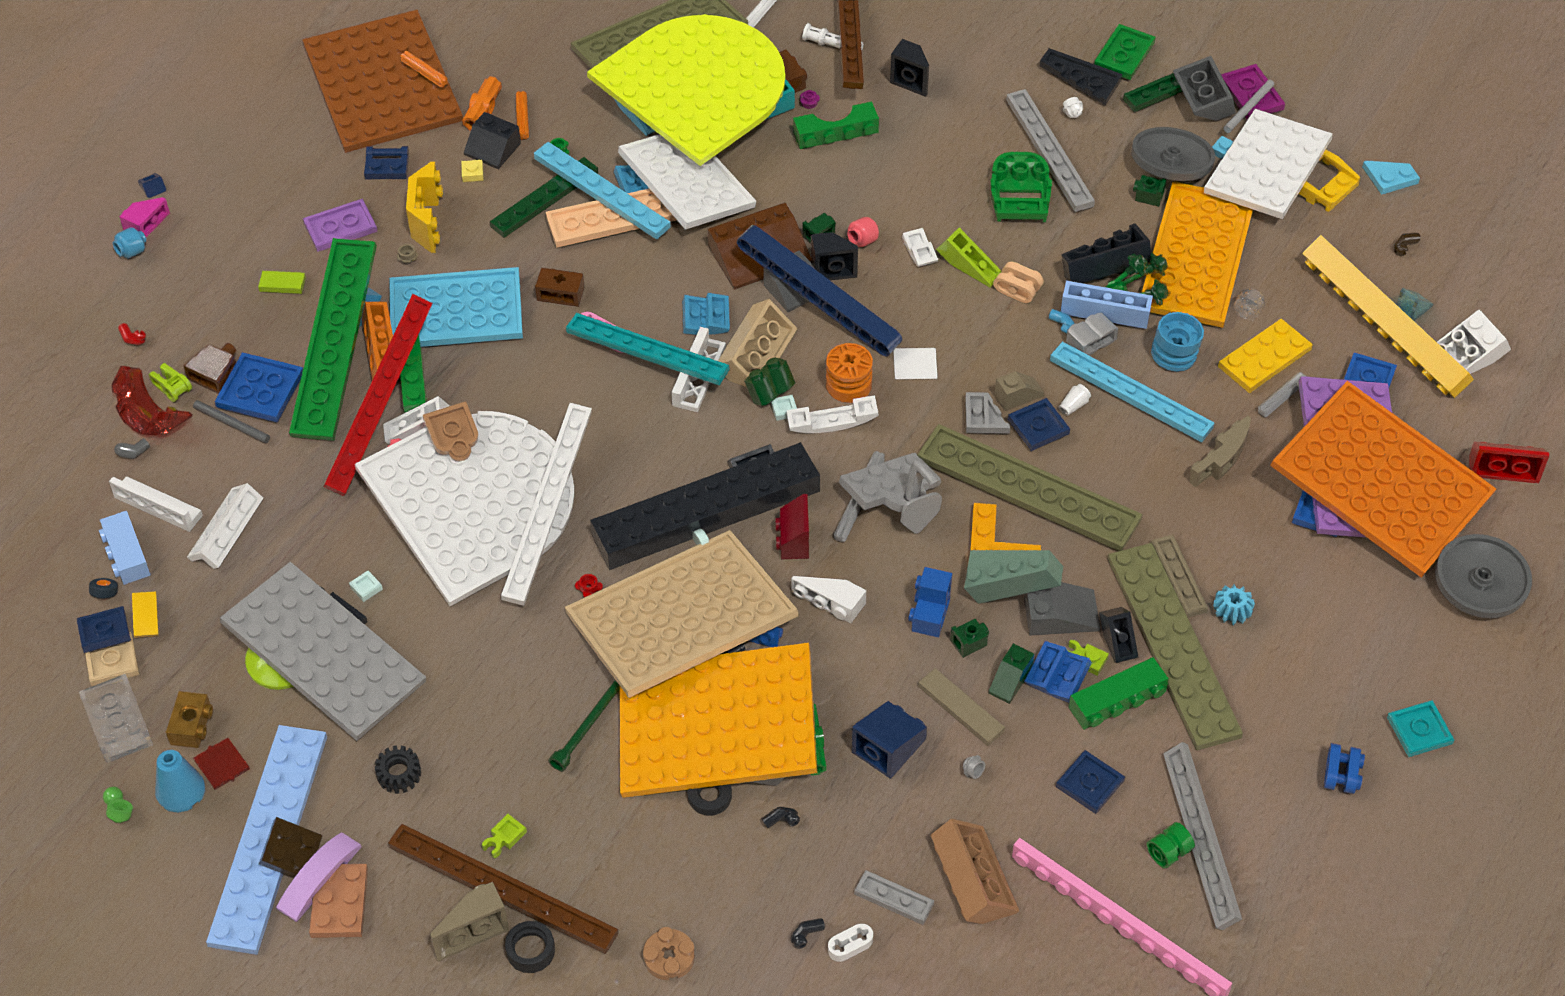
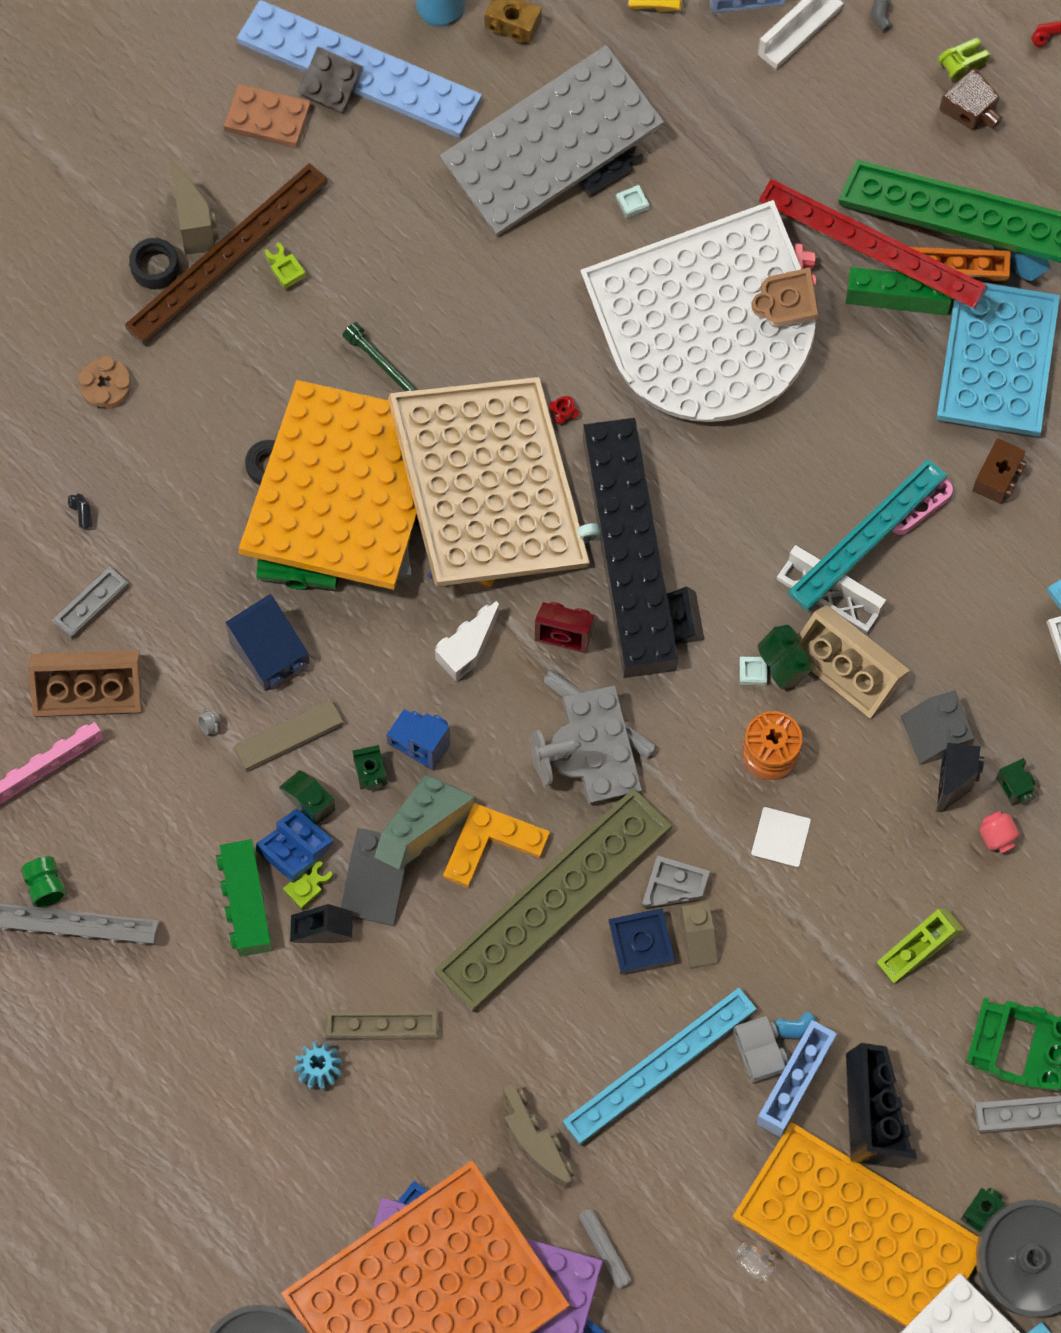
camera: 105 degrees right, 15 degrees up
(139, 409) = (936, 29): clear red windscreen -> none
(221, 763) = (458, 42): clear red piece -> none
(226, 525) = (748, 84): white fence -> none
(259, 387) = (933, 141): blue plate -> none
(261, 436) = (894, 111): dark grey bar -> none
(315, 874) = (299, 100): lavender slope -> none
(400, 781) = (393, 175): black tyre -> none
(411, 421) = (833, 289): white slope -> none
(546, 504) = (673, 381): white plate -> none
(706, 313) = (918, 621): dark azure slope -> none
(736, 264) = (1008, 705): reddish brown slope -> none
(784, 814) = (219, 520): black arm -> none
(819, 290) = (899, 740): dark blue beam -> none
(833, 419) = (720, 713): white slope -> none
(851, 944) = (50, 548): white beam -> none
(919, 247) = (960, 895): white slope -> none
(1018, 282) = (868, 1006): light nougat brick -> none
(1075, 399) = (666, 995): white cone -> none
(1090, 782) = (153, 835): dark blue tile -> none
(1139, 265) = (823, 1116): dark green plant -> none
(1175, 647) = (292, 984): olive plate -> none
(1177, 341) = (714, 1124): dark azure wheel -> none
(1265, 355) = (673, 1254): yellow plate -> none
(1354, 761) = (75, 1114): blue brick -> none
(1420, 728) = (92, 1207): teal plate -> none

